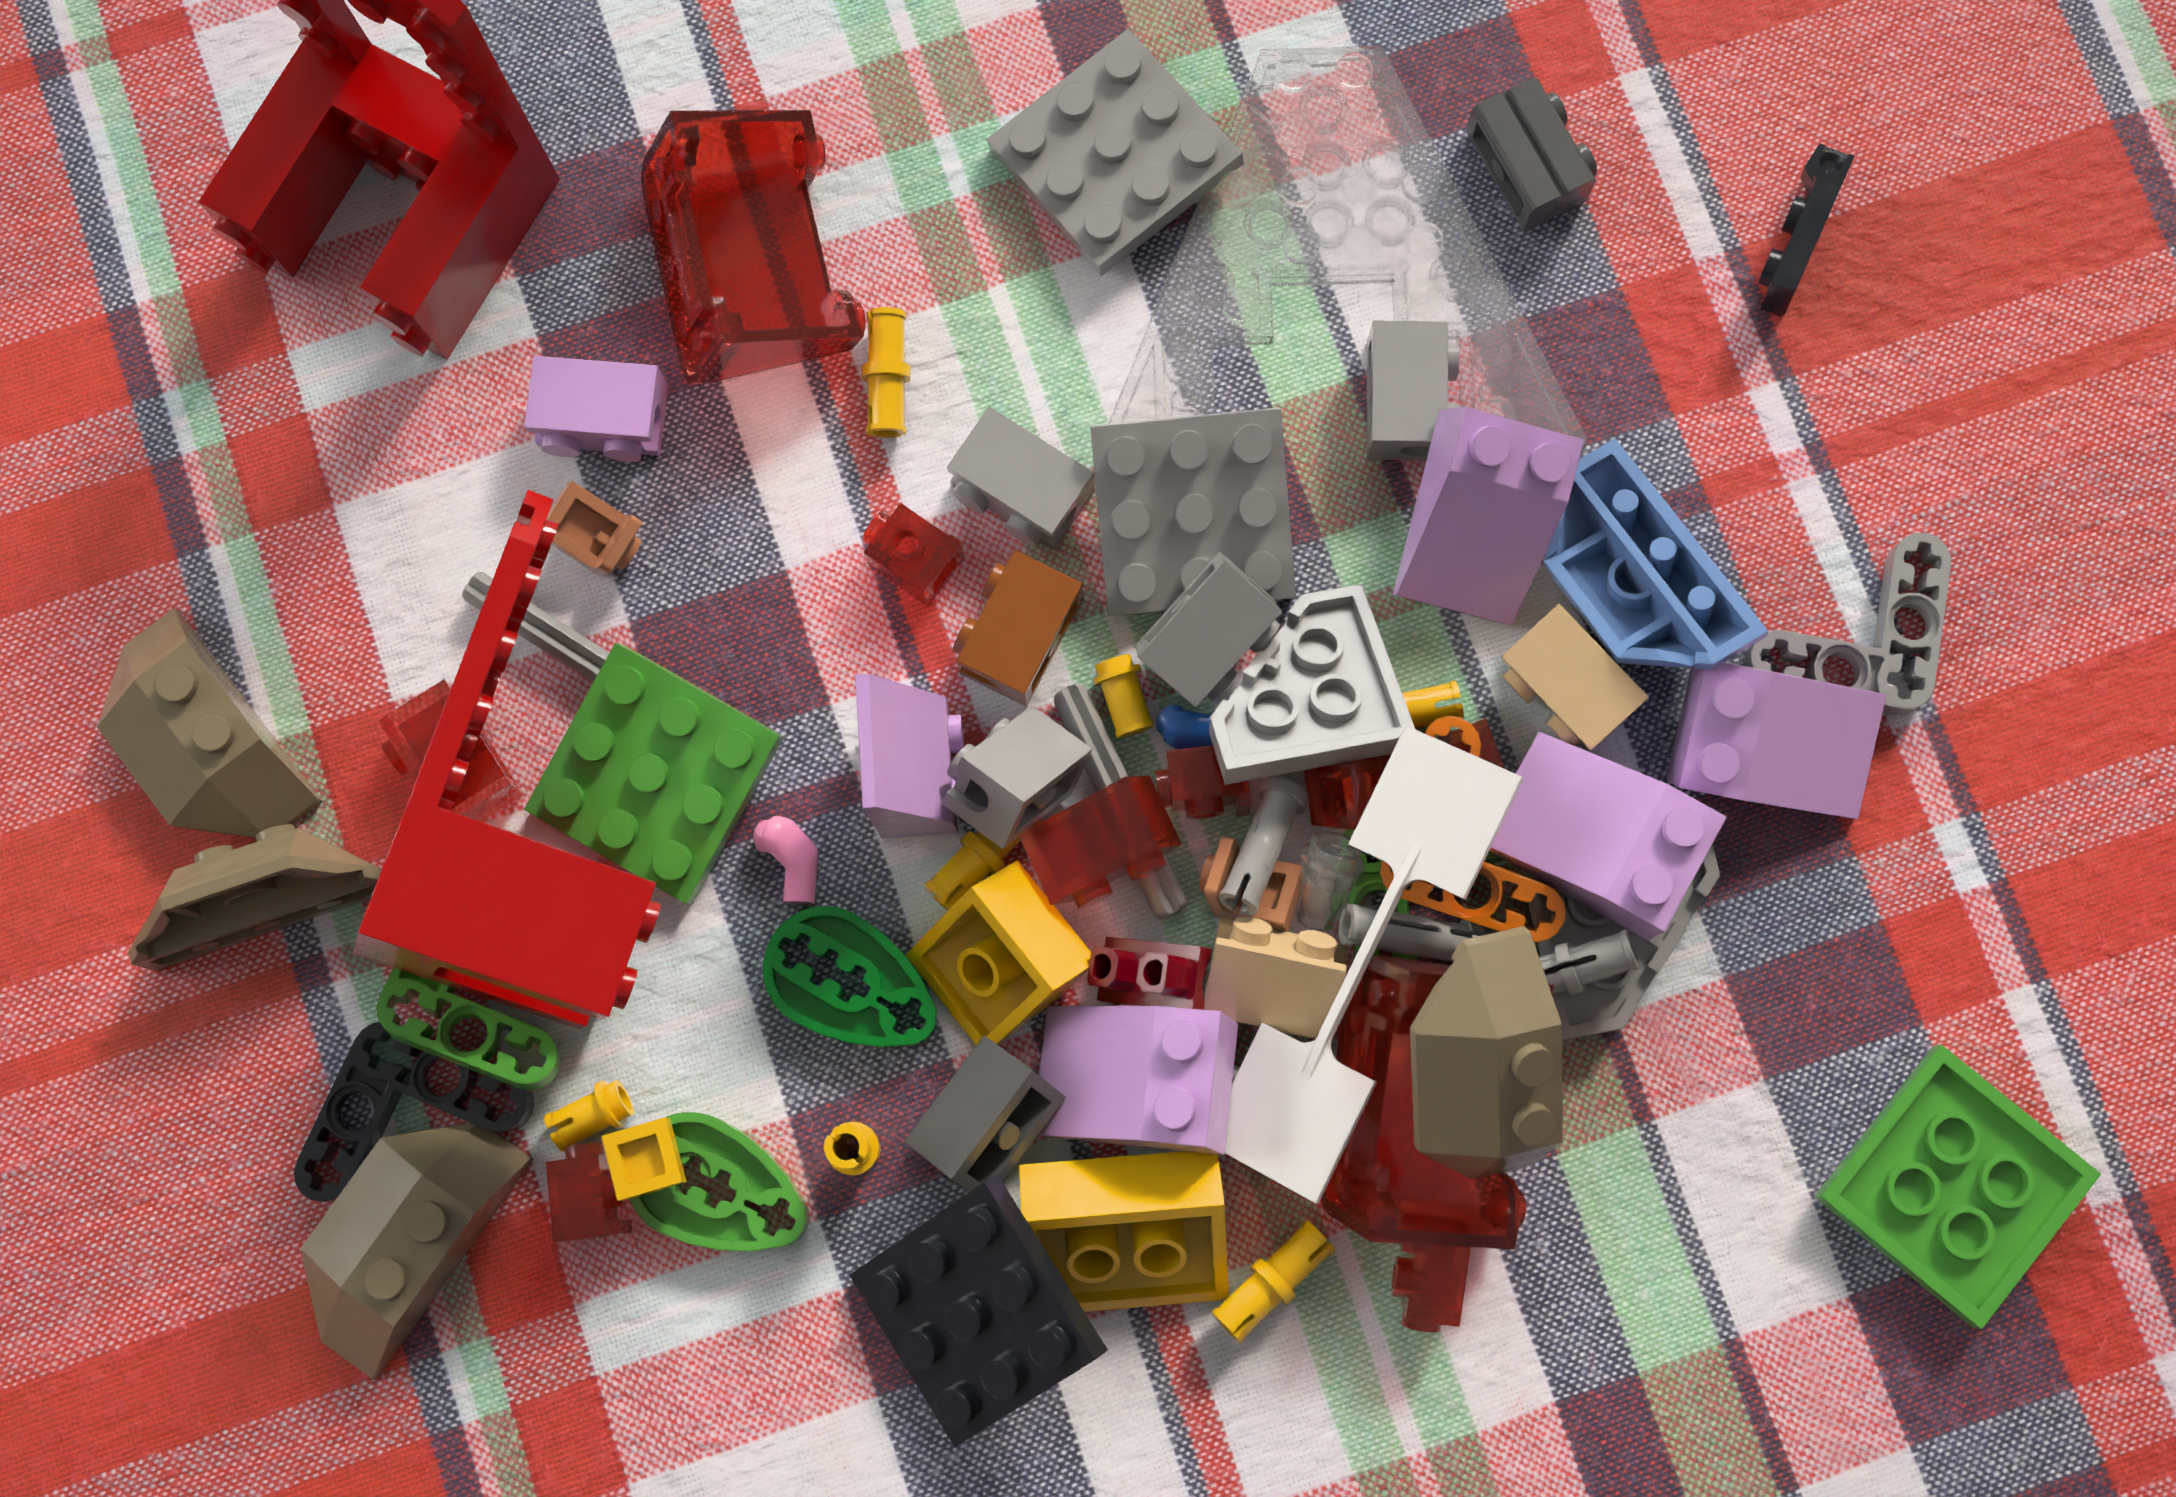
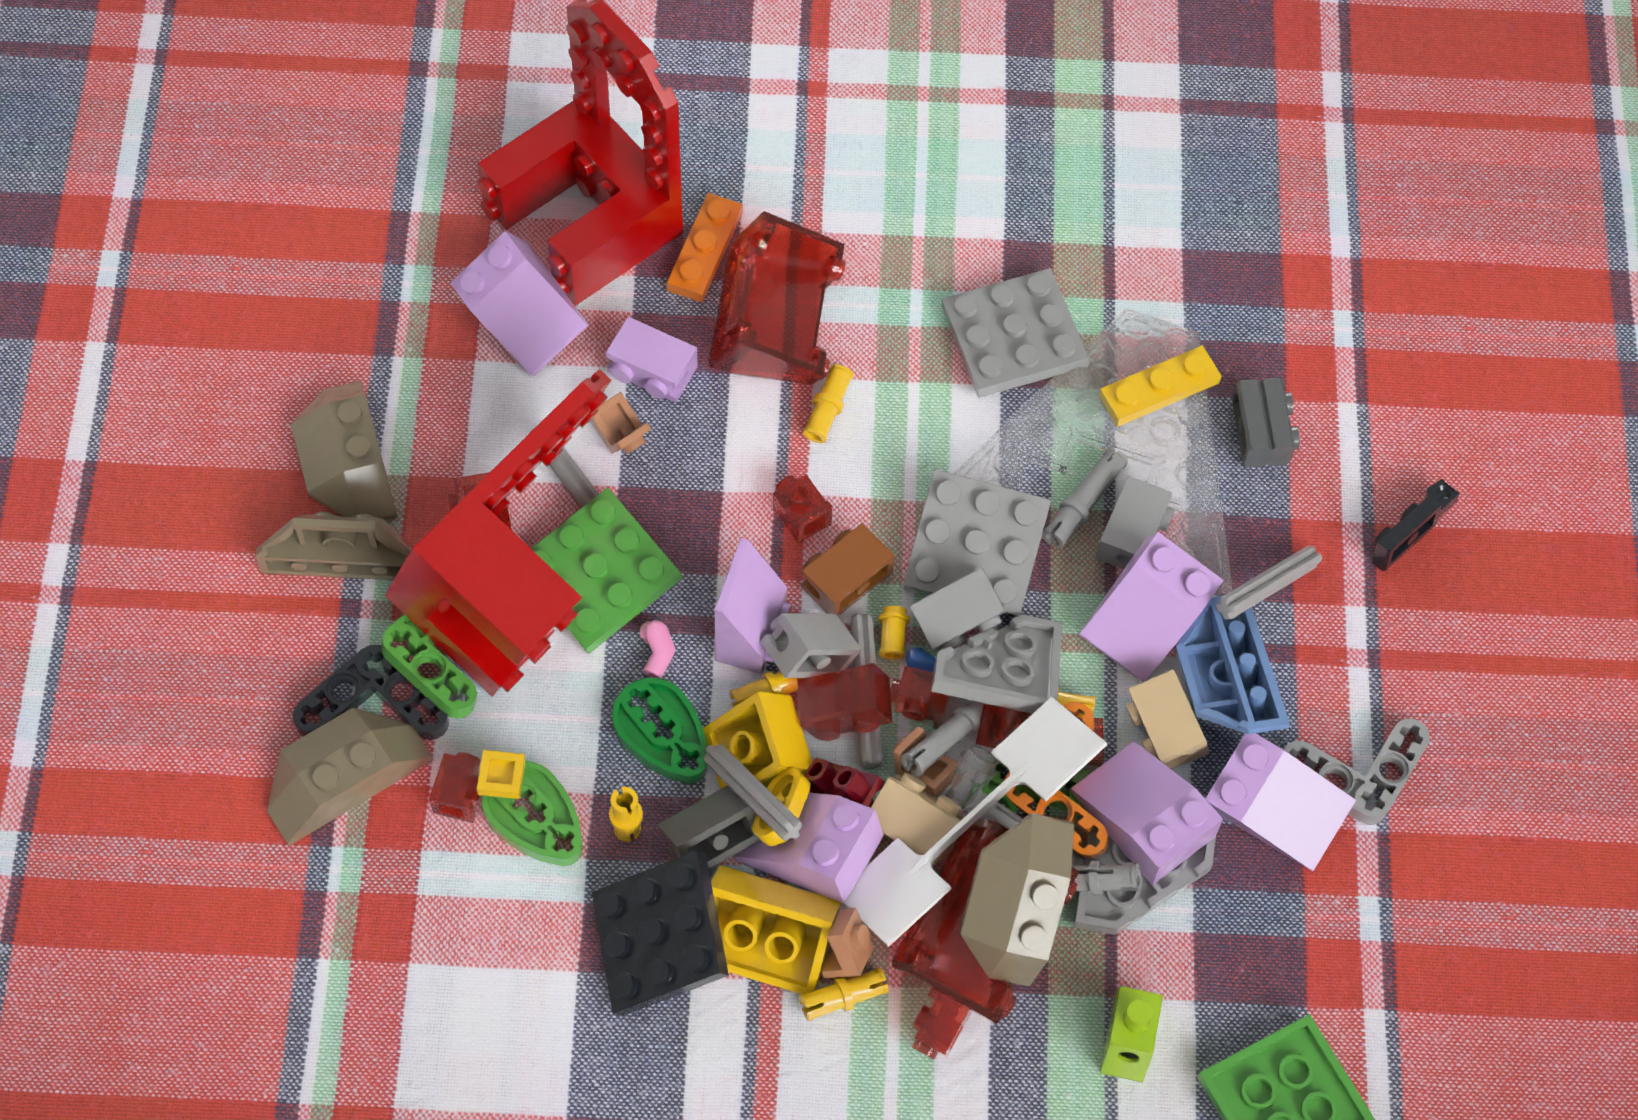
camera: 15 degrees right, 15 degrees down
(359, 394) = (519, 302): none -> lavender slope
(602, 191) = (704, 247): none -> orange plate
(603, 1108) = (476, 742): yellow pin -> none
(1019, 480) = (882, 490): light grey brick -> none
(1029, 1051) = (753, 792): none -> light grey axle
(1077, 1051) = (792, 790): none -> yellow plate
(1255, 1218) = (849, 946): none -> nougat bracket
(1312, 397) = (1076, 509): none -> light grey pin
(1362, 157) = (1159, 386): none -> yellow plate
(1640, 411) = (1268, 582): none -> light grey axle
(1705, 1173) = (1132, 1030): none -> lime torso

